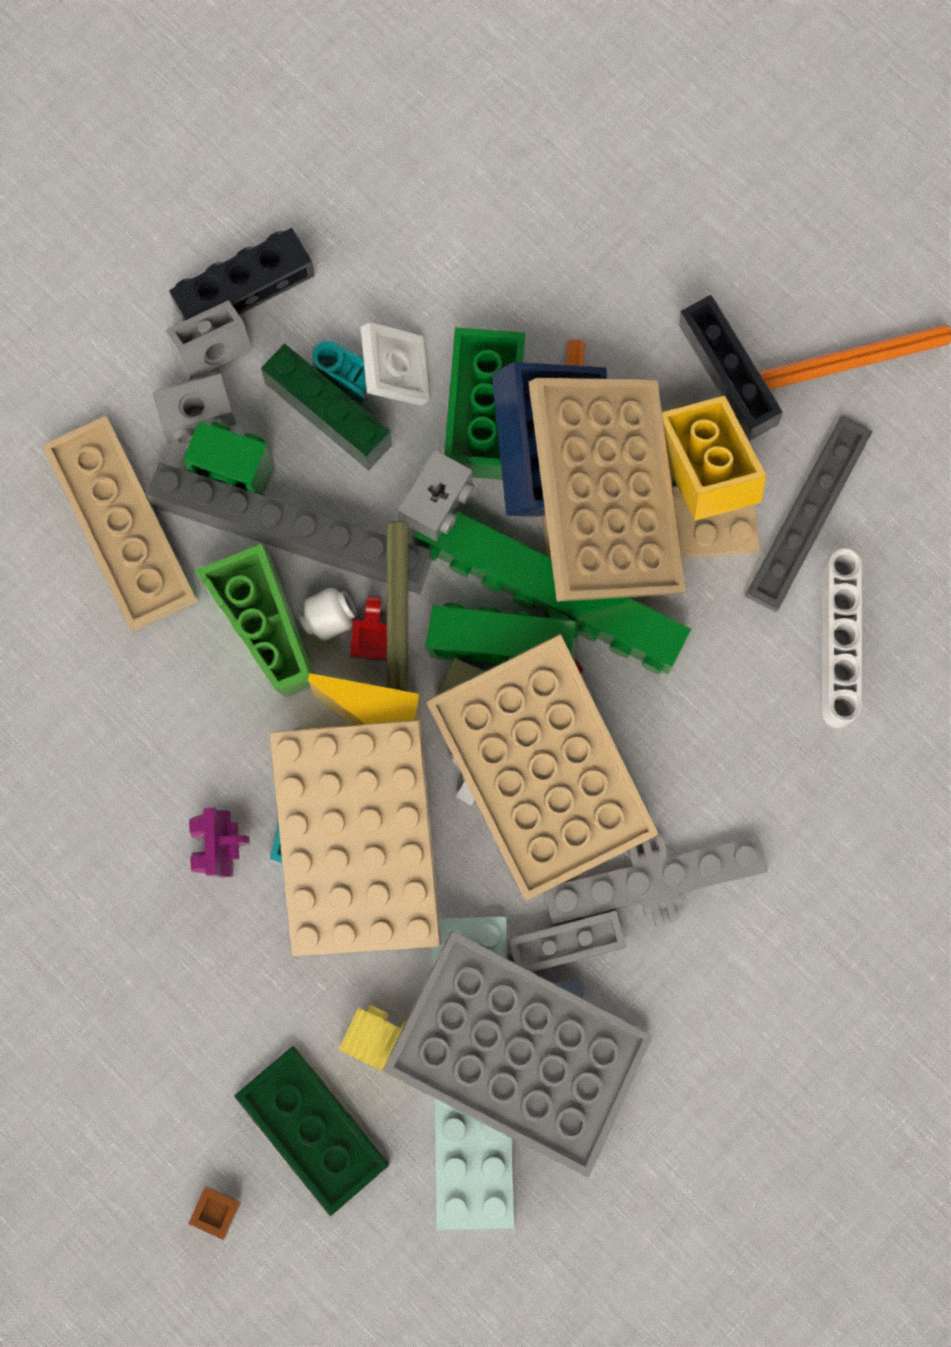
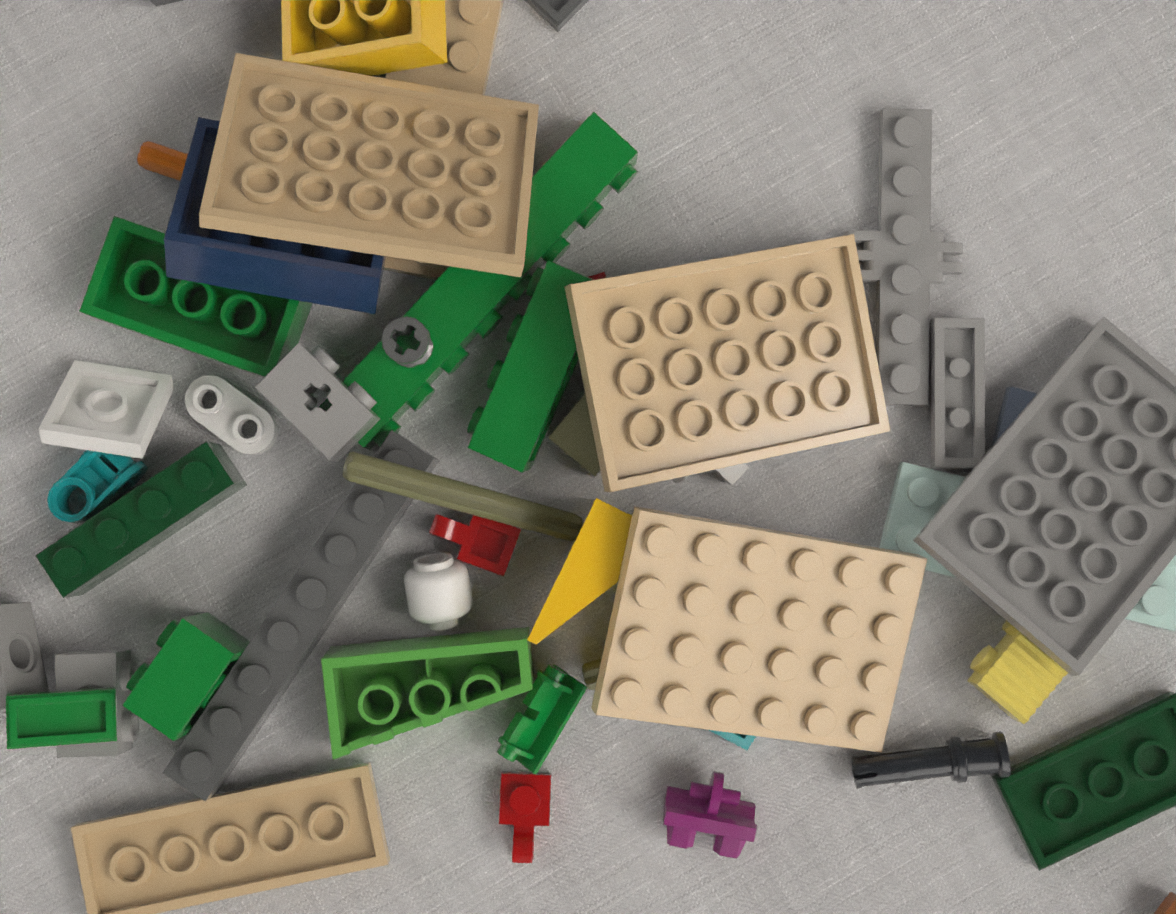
camera: 70 degrees left, 10 degrees up
(180, 386) = (61, 718): none -> green tile
(194, 715) = (524, 804): none -> red plate
(272, 711) = (549, 709): none -> green hinge
(299, 1011) = (955, 759): none -> black pin
(413, 445) = (230, 414): none -> white plate
(484, 538) = (404, 327): none -> dark grey bush

